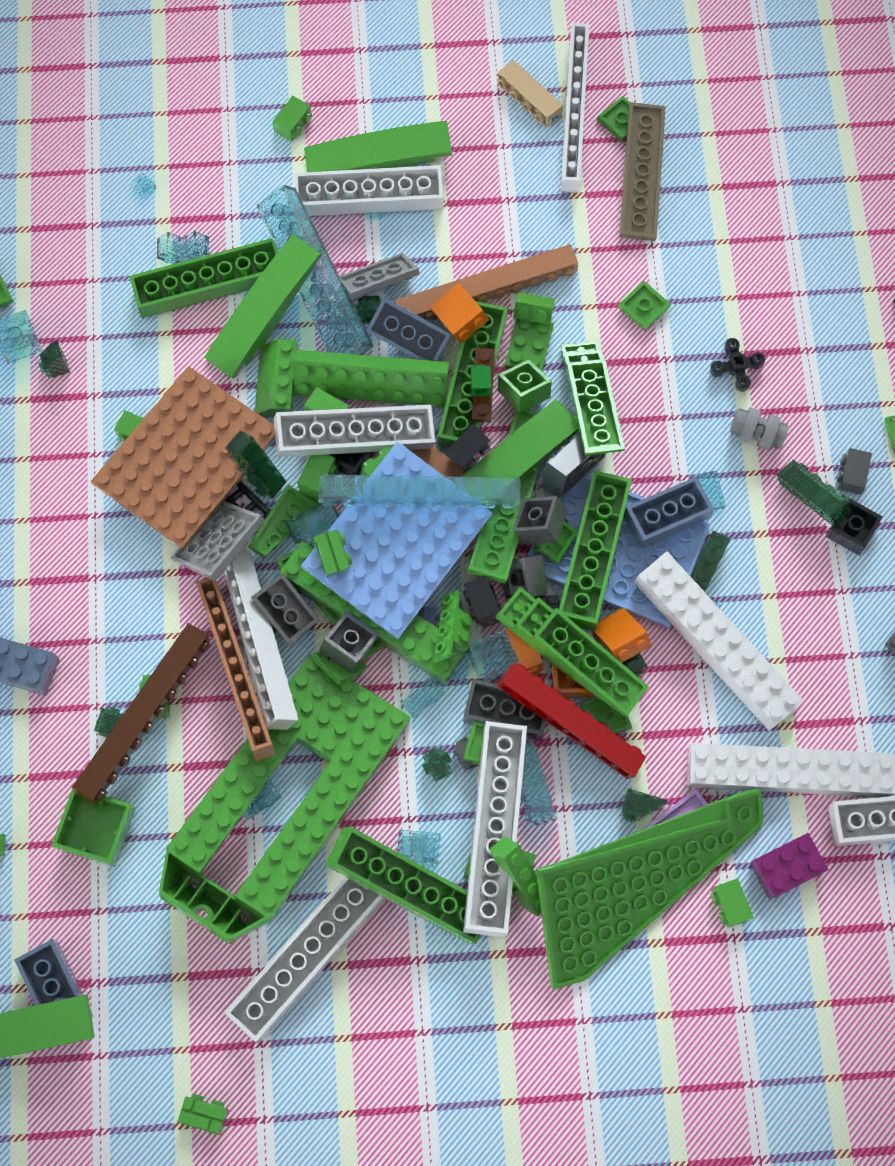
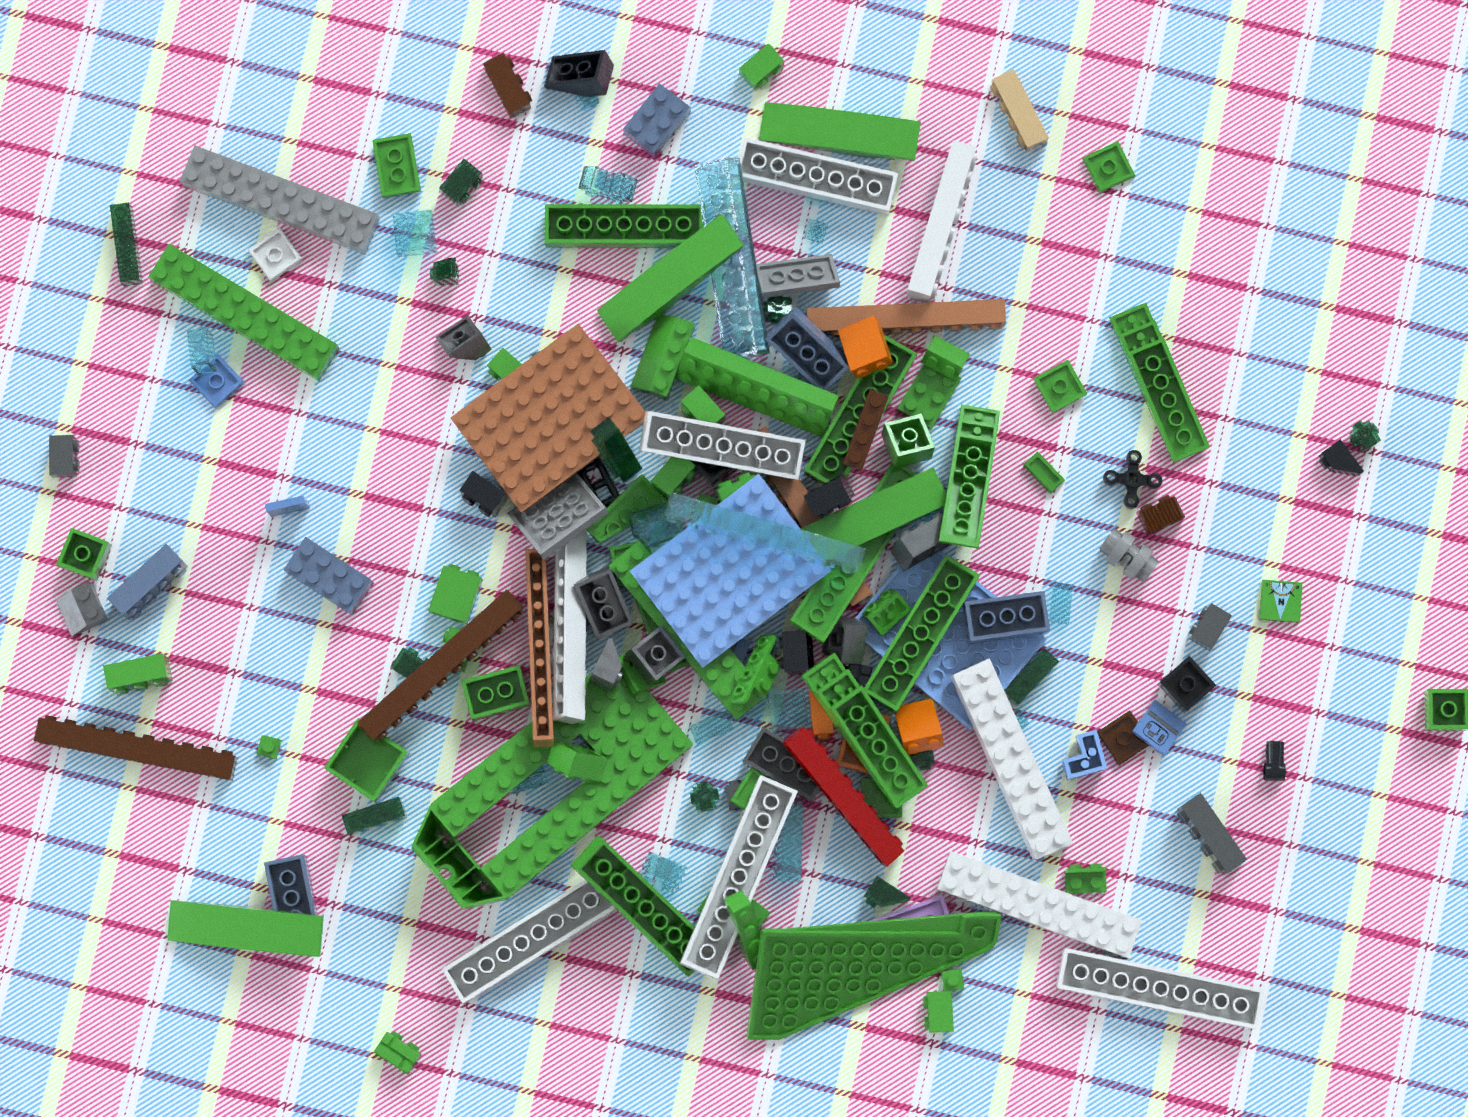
camera: 20 degrees right, 10 degrees up
(48, 283) = (461, 183): none -> clear green brick
(69, 192) = (507, 85): none -> reddish brown brick
(88, 415) = (464, 341): none -> flat silver slope
(116, 880) = (374, 816): none -> clear green brick
(133, 163) = (580, 73): none -> black slope
(140, 644) = (455, 594): none -> bright green brick
(142, 544) = (483, 494): none -> black brick
(205, 725) = (496, 693): none -> bright green brick
(212, 184) = (657, 120): none -> sand blue brick
(302, 764) = (576, 761): none -> bright green brick
(306, 665) = (607, 669): none -> flat silver slope
(332, 553) = (662, 570): bright green brick -> none
(382, 237) = (815, 231): none -> clear light blue plate
(481, 380) = (862, 429): green brick -> none
(493, 195) = (940, 223): none -> white brick
(540, 520) = (875, 591): flat silver brick -> none
(575, 107) = (1061, 142): white brick -> none
(642, 171) = (1108, 236): dark tan plate -> none
(655, 383) = (1043, 472): none -> bright green tile
(731, 277) = (1159, 382): none -> bright green slope
(733, 868) = (952, 980): none -> bright green plate
(774, 387) = (1160, 515): none -> reddish brown brick
(789, 618) = (1090, 759): none -> light blue brick
(789, 866) = (1004, 994): magenta brick -> none
(812, 593) = (1120, 740): none -> reddish brown tile
(814, 493) = (1157, 639): clear green brick -> none
(825, 733) = (1085, 880): none -> bright green bracket
(842, 573) = (1159, 727): none -> medium blue tile

